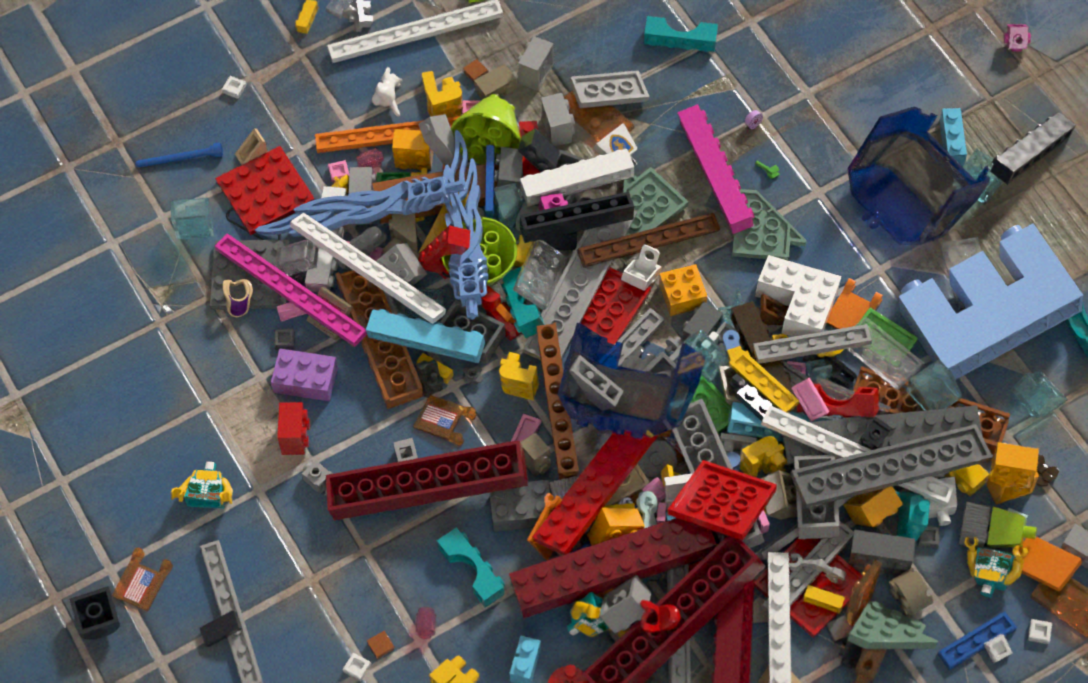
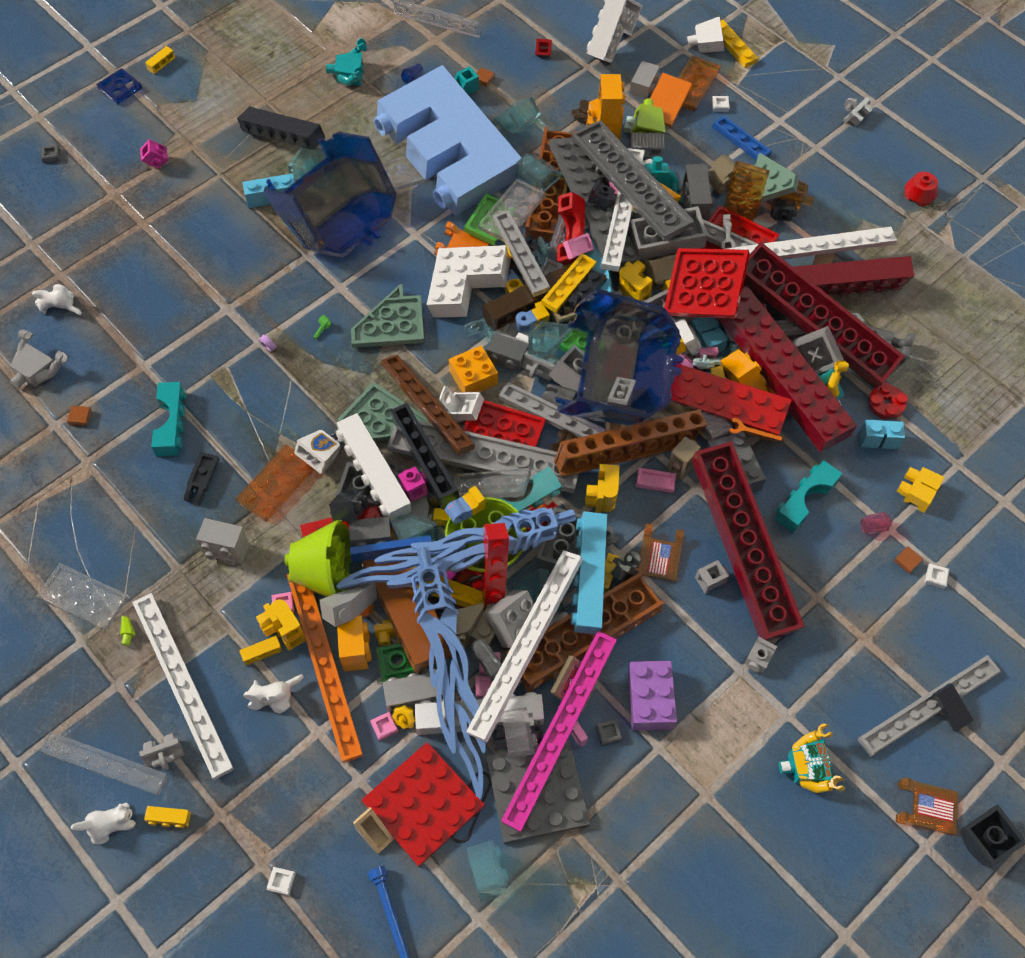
camera: 105 degrees left, 0 degrees up
(237, 307) = (586, 788): tan piece -> none
(293, 428) = (721, 687): red brick -> none
(371, 158) = (367, 692): clear pink brick -> none
(475, 70) = (230, 609): dark orange tile -> none
(496, 82) = (250, 581): dark tan brick -> none
(506, 234) = (466, 506): none -> leg
(557, 119) = (294, 507): light grey brick -> none
(609, 89) = (248, 468): light grey plate -> none
(612, 56) = (201, 476): none -> black hinge
(667, 617) = (827, 311): red piece -> none
(716, 170) = (333, 362): dark pink brick -> none
(772, 311) = (477, 302): reddish brown slope -> none
(823, 599) = (749, 226): yellow piece -> none
(994, 568) = (683, 125): torso -> none
(997, 648) = (745, 124): white tile -> none

